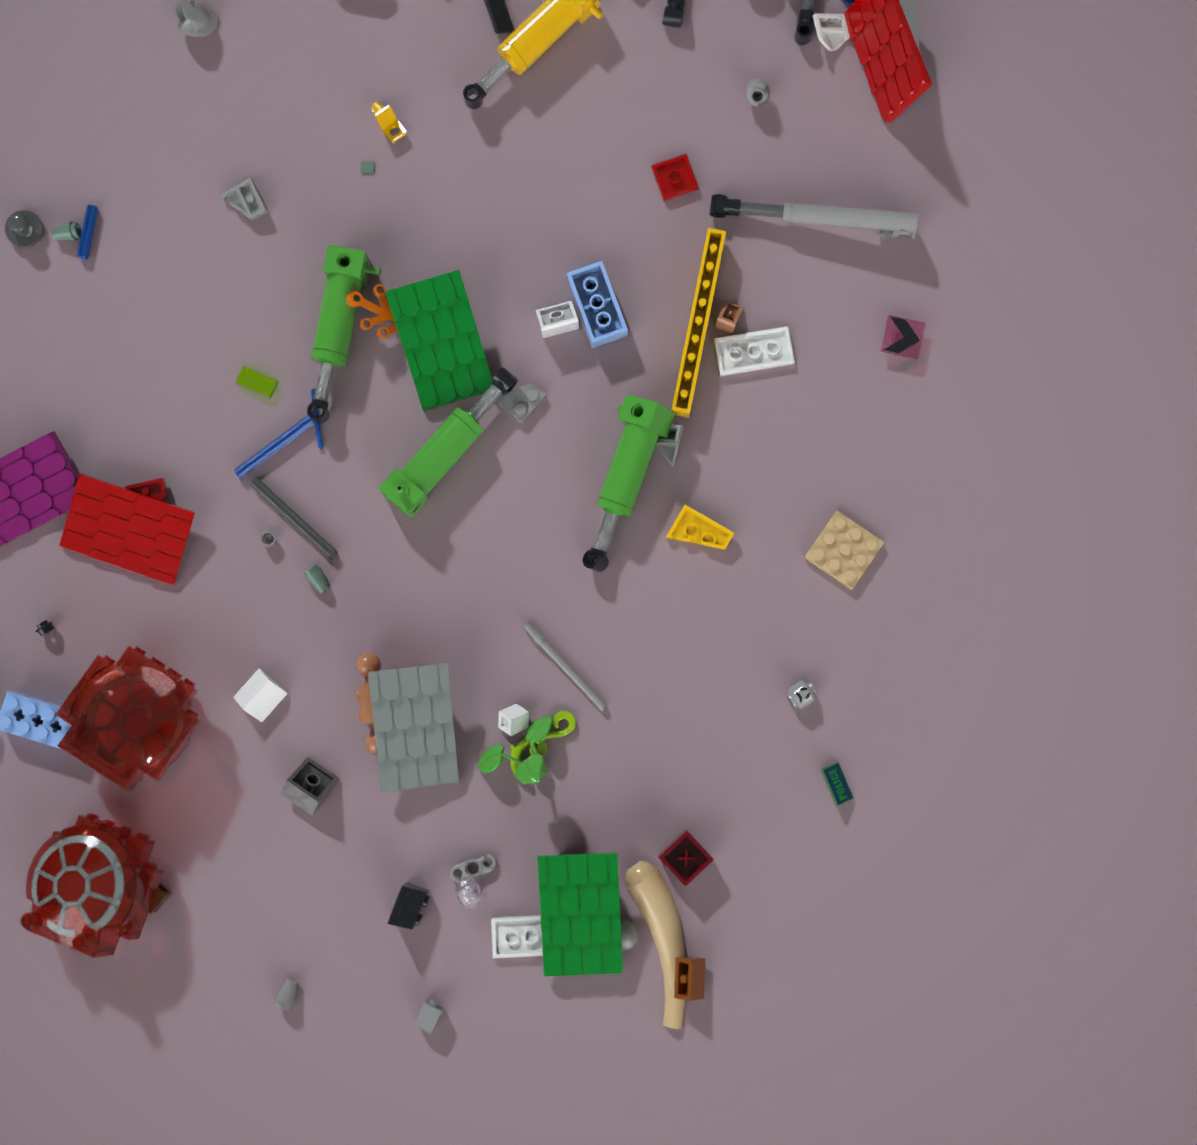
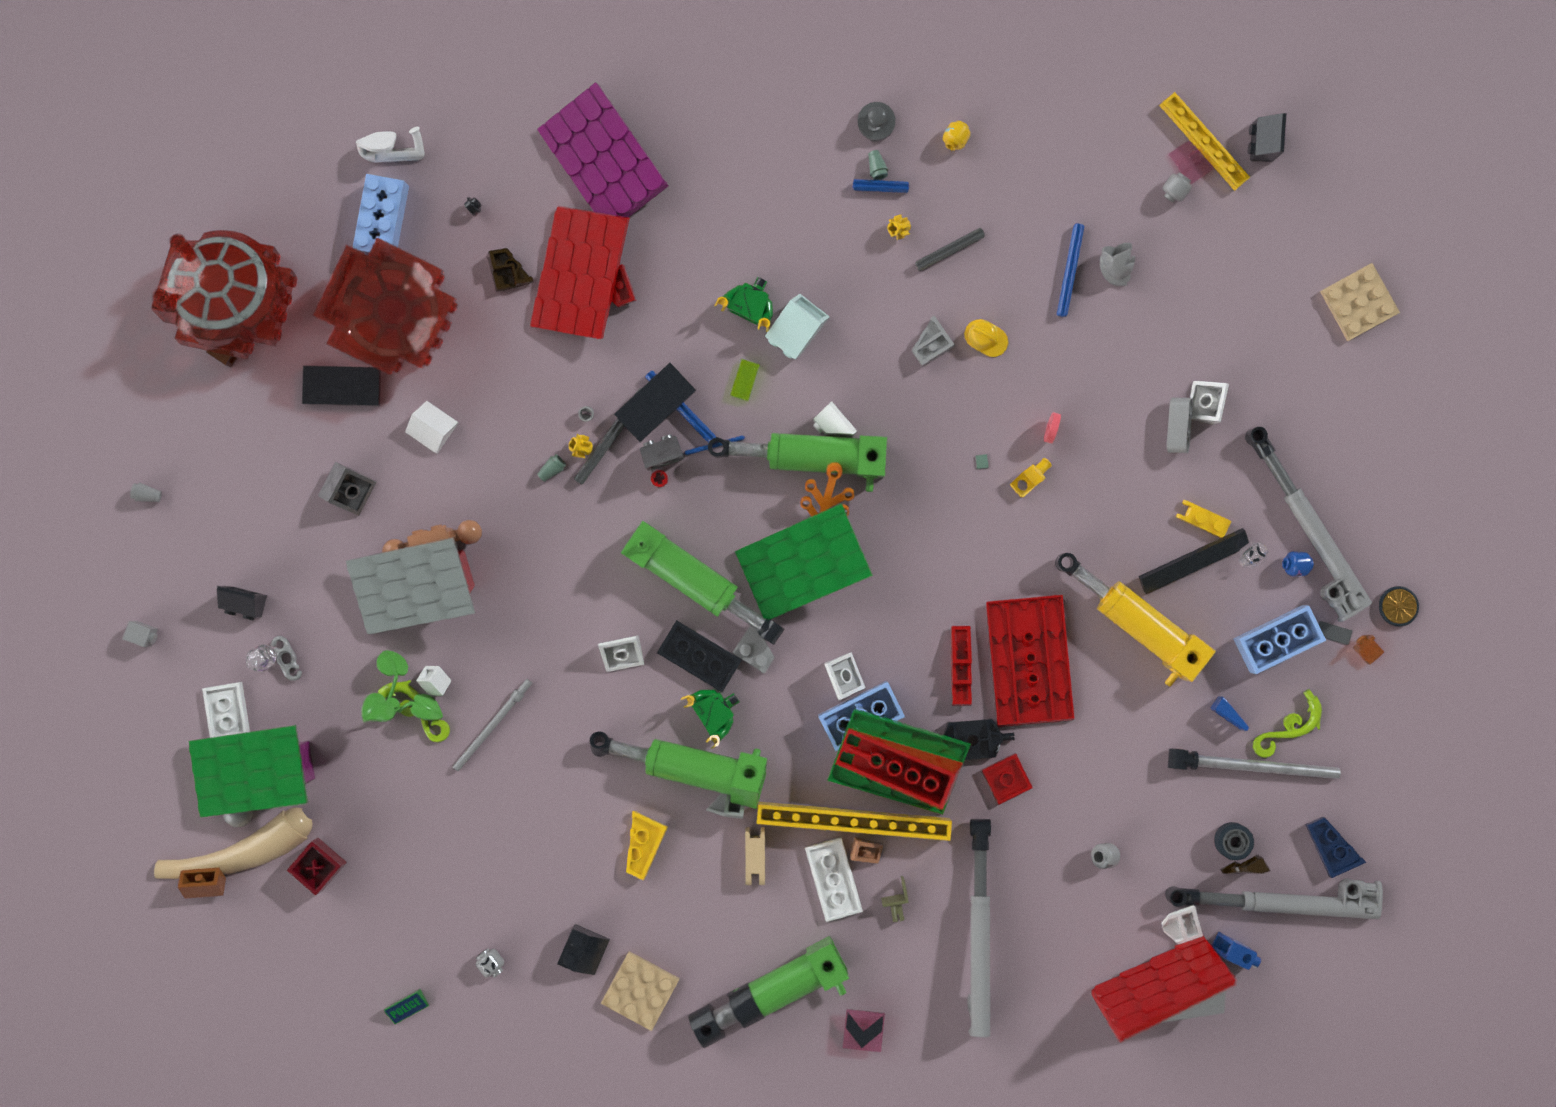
camera: 80 degrees right, 5 degrees up
(49, 154) = (956, 135): none -> yellow head
(115, 602) = (507, 271): none -> dark brown slope
(129, 222) = (899, 227): none -> yellow gear
(158, 173) = (950, 249): none -> dark grey axle
(182, 367) = (749, 303): none -> green torso
(195, 64) = (1070, 270): none -> blue axle
(205, 781) = (341, 385): none -> black tile
(212, 325) = (796, 326): none -> light aqua slope
(249, 150) = (986, 338): none -> yellow piece
(265, 468) = (655, 402): none -> black tile
(298, 547) = (580, 446): none -> yellow gear
(308, 297) = (833, 422): none -> white slope
(316, 467) = (661, 453): none -> flat silver slope
(338, 479) = (654, 475): none -> red bush
(342, 95) = (1052, 427): none -> coral piece
(508, 530) = (621, 653): none -> white slope
(521, 455) = (699, 656): none -> black plate
(560, 207) = (961, 665): none -> red slope
(564, 143) = (1029, 660): none -> red piece
(577, 446) = (713, 712): none -> green torso
(637, 219) = (987, 733): none -> black plate
(646, 271) = (898, 761): none -> piece
(723, 422) = (755, 855): none -> tan piece
(781, 292) = (896, 902): none -> olive bracket
(798, 600) = (583, 950): none -> black slope
(855, 416) = (772, 992): none -> bright green piece

